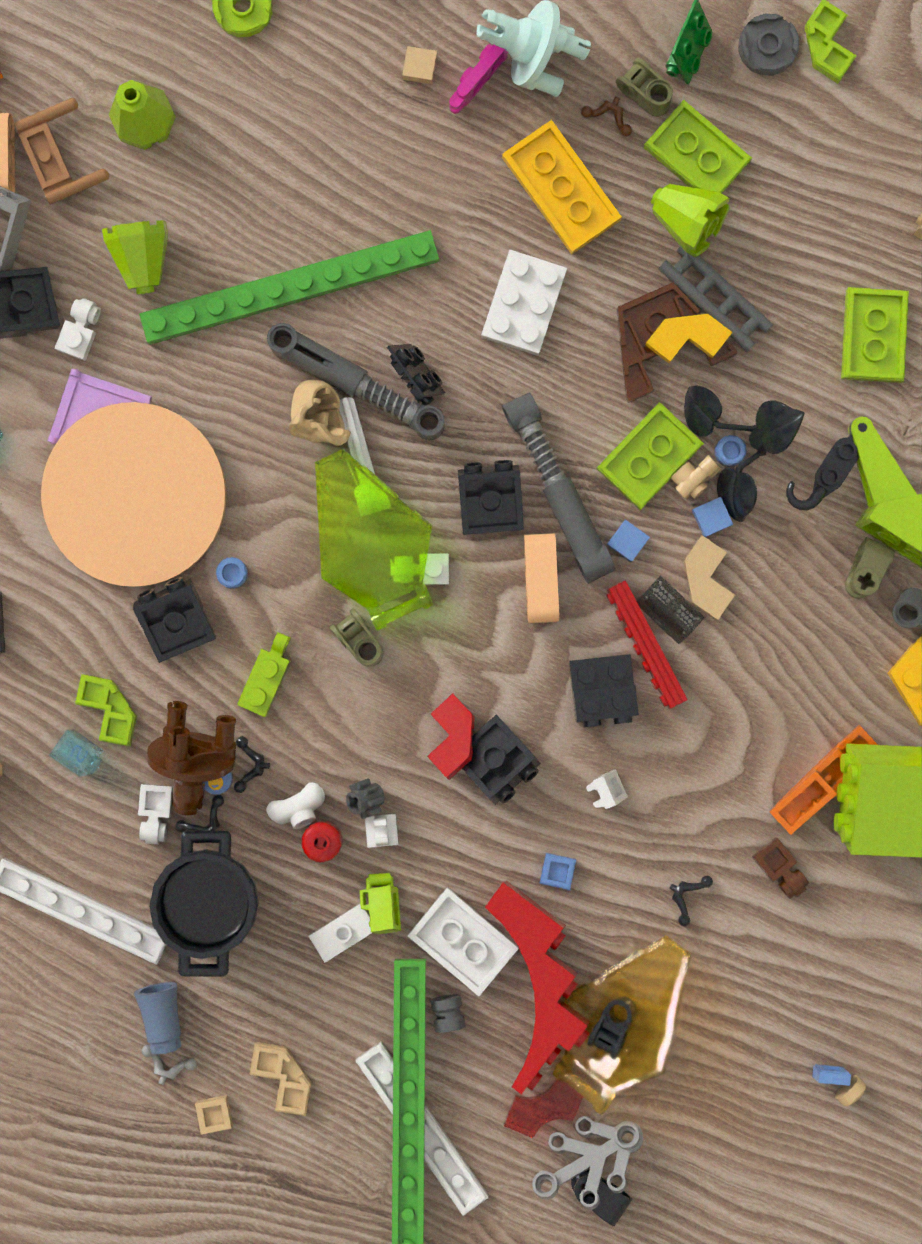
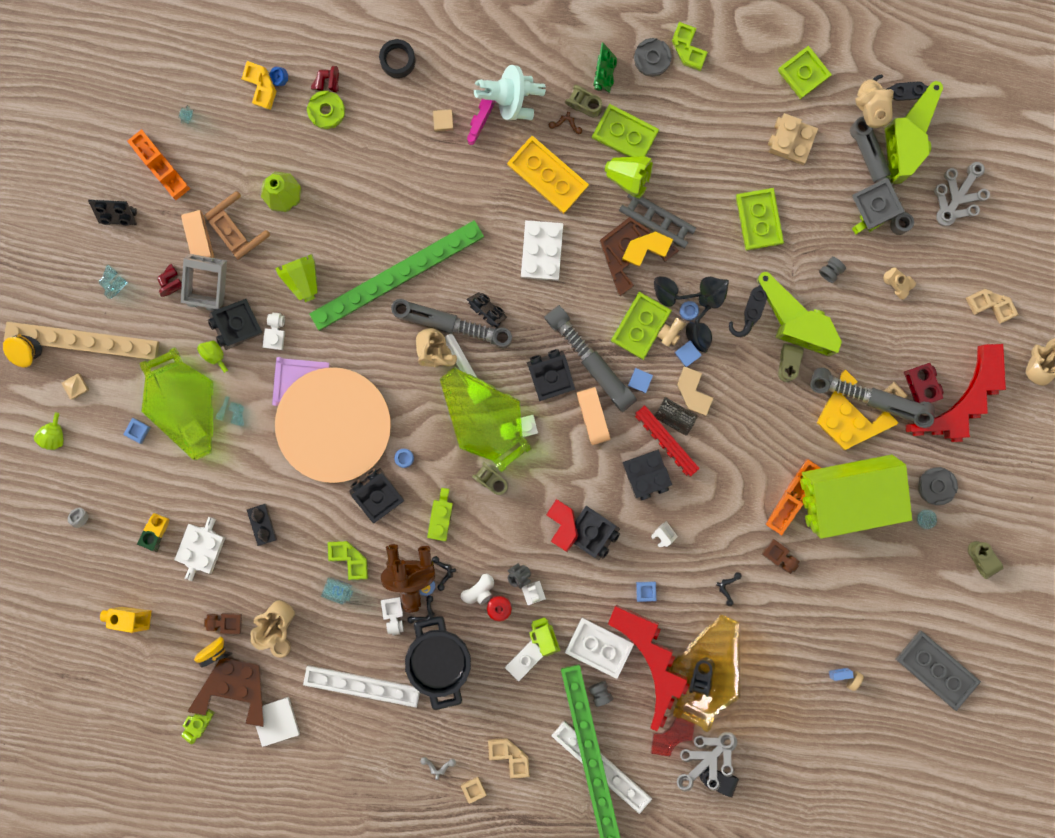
camera: 15 degrees left, 0 degrees up
(160, 1016) = (427, 738): sand blue plant -> none

